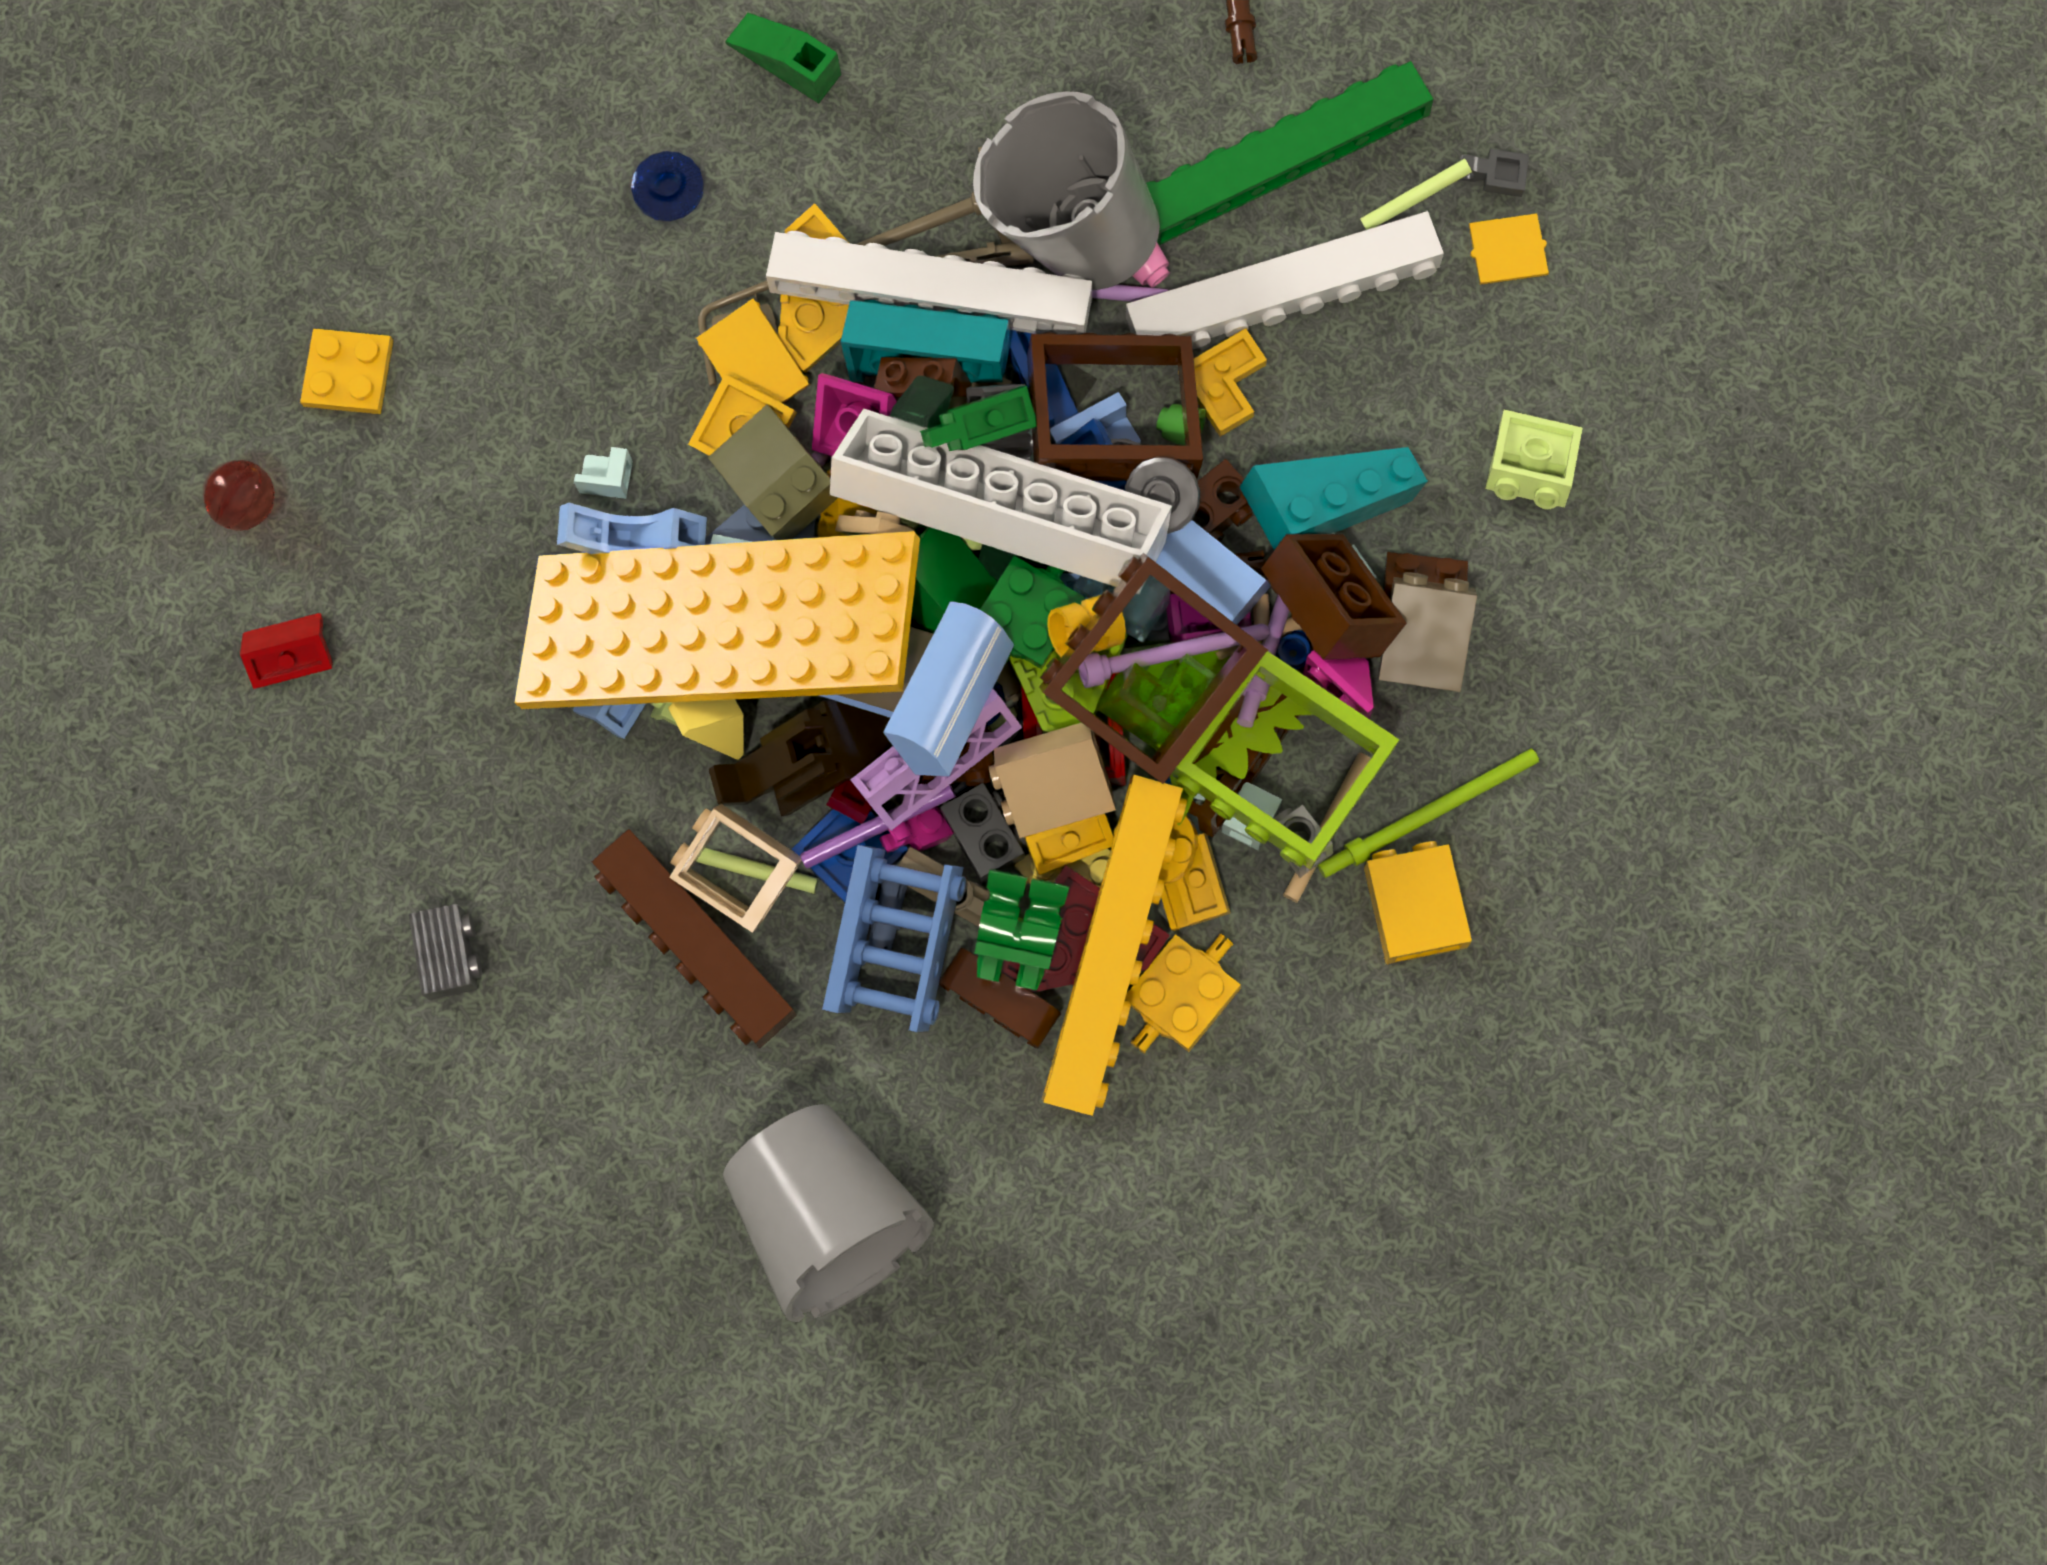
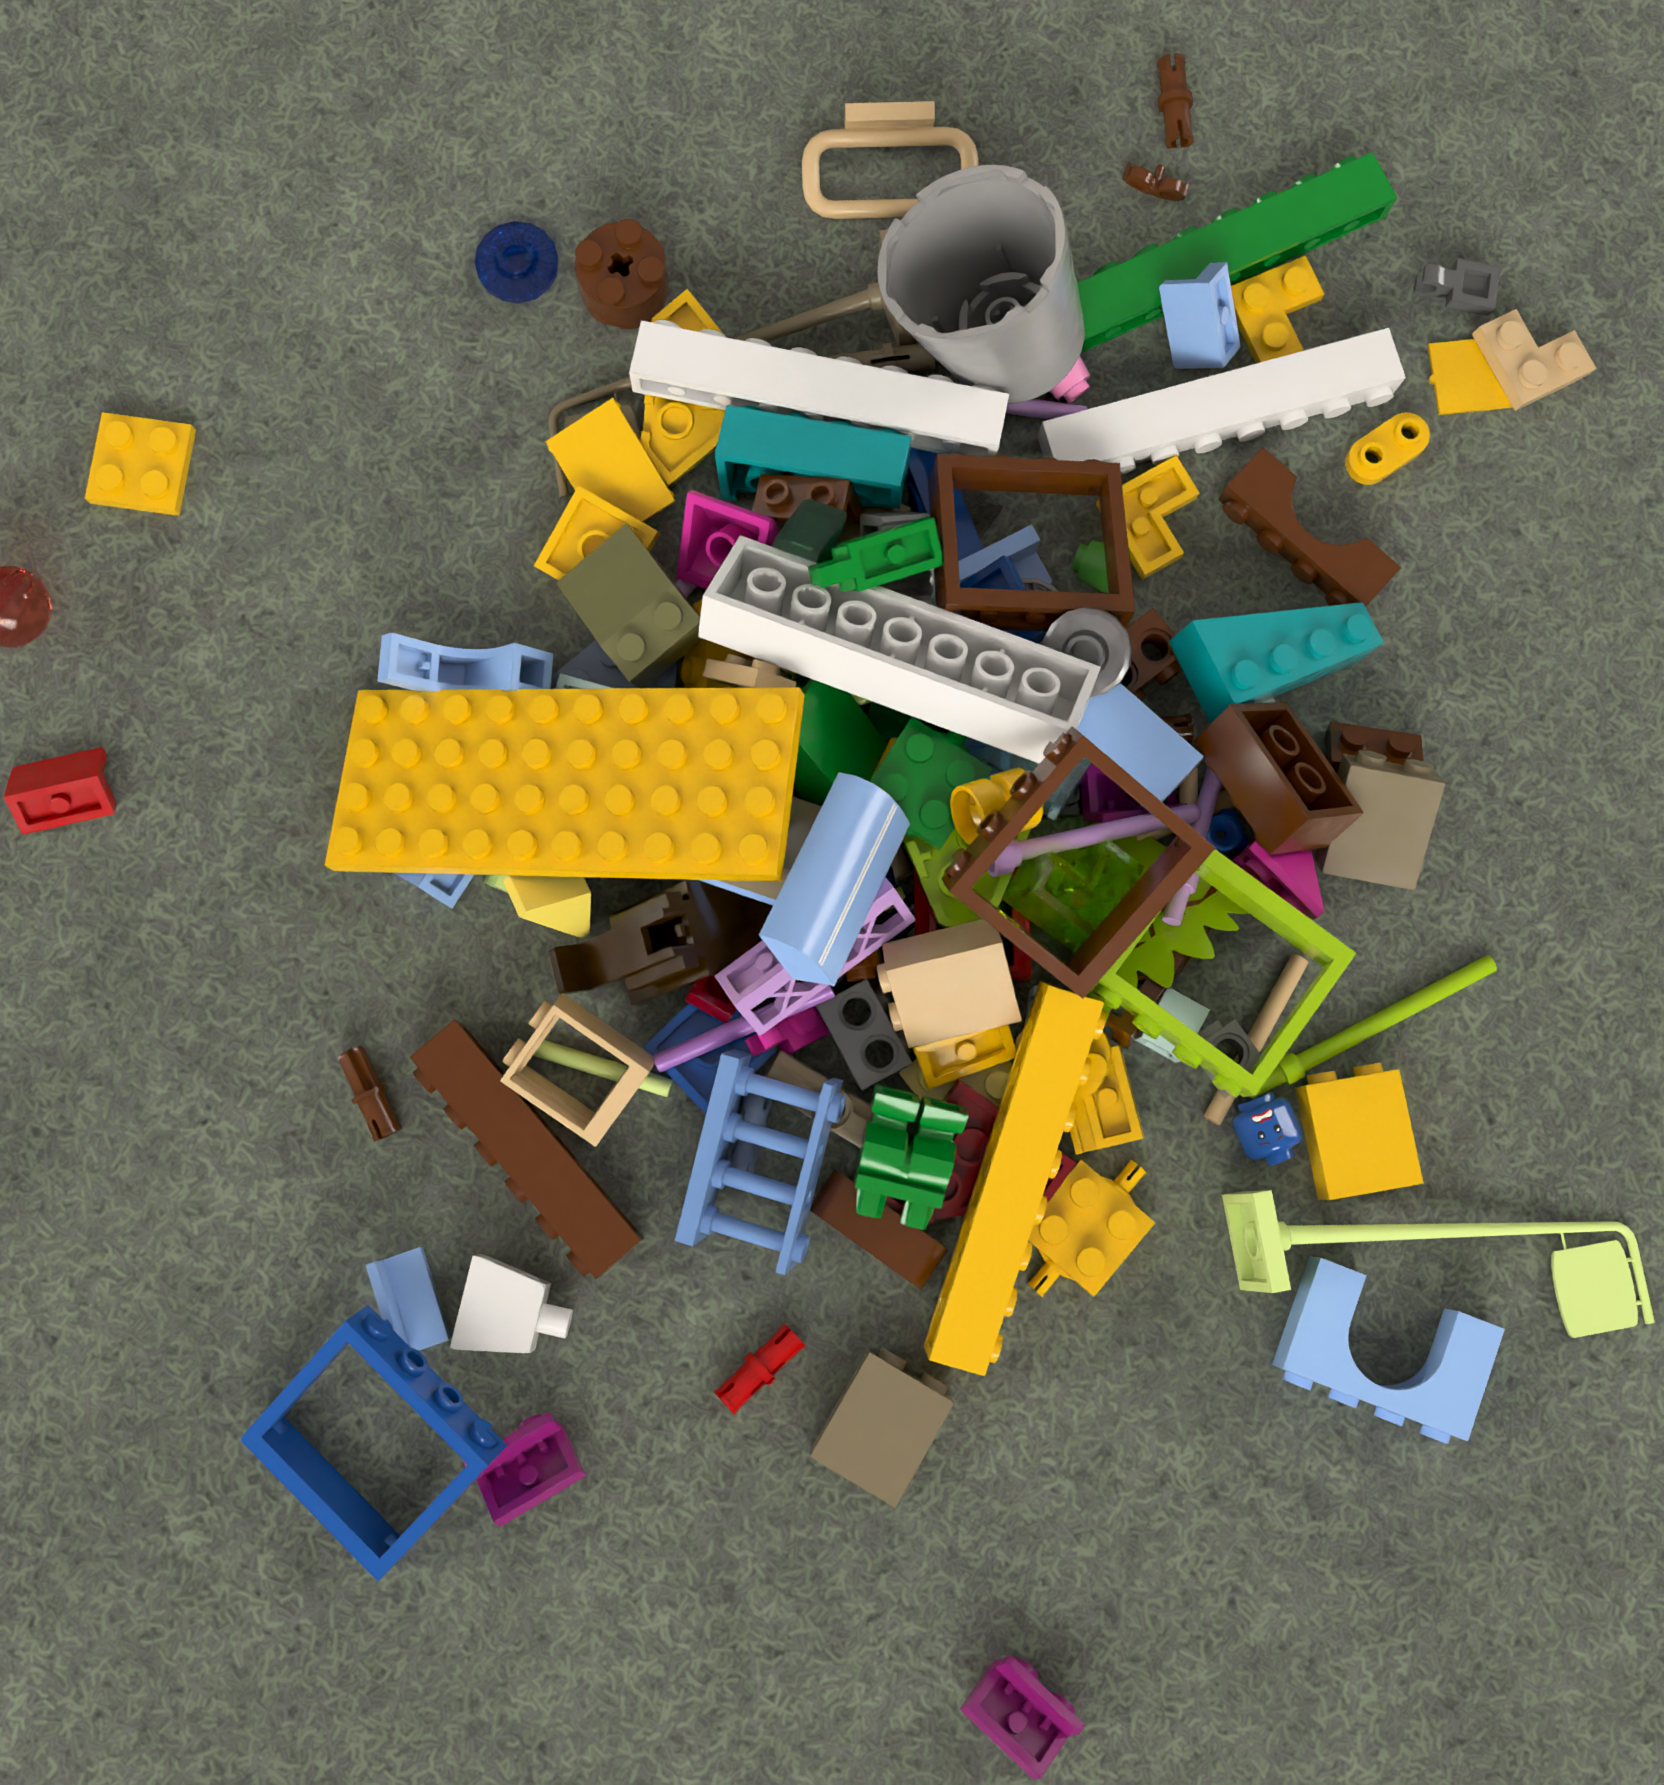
camera: 10 degrees left, 5 degrees up
(444, 951) = (237, 1154): flat silver brick -> none
(529, 1234) = (323, 1488): none -> blue window
(556, 897) = (369, 1093): none -> reddish brown axle
(595, 1072) = (409, 1298): none -> light blue panel
(605, 474) = (437, 597): light aqua panel -> none
(678, 1075) = (505, 1309): none -> white torso
(694, 1208) = (529, 1469): none -> magenta bracket
(756, 173) = (619, 251): none -> reddish brown brick
(787, 54) = (659, 114): green slope -> none
(821, 1211) = (666, 1486): light grey cone -> none
(899, 1119) = (759, 1368): none -> red pin
(976, 57) = (878, 126): none -> tan bar
(1006, 1163) = (882, 1425): none -> dark tan brick
(1133, 1405) = (1021, 1714): none -> magenta bracket
(1224, 96) = (1155, 185): none -> reddish brown piece
(1264, 210) = (1201, 319): none -> light blue panel
(1323, 192) = (1266, 300): none -> yellow plate
(1337, 901) = (1268, 1128): none -> blue head
(1386, 1094) = (1439, 1396): none -> light blue arch
(1396, 422) = (1263, 501): none -> reddish brown arch
(1416, 194) = (1372, 308): yellowish green bar -> none
(1435, 313) = (1389, 447): none -> yellow plate
(1534, 459) = (1500, 621): yellowish green plate -> none
(1559, 243) = (1523, 367): none -> tan plate
(1626, 1026) = (1588, 1280): none -> yellowish green piece

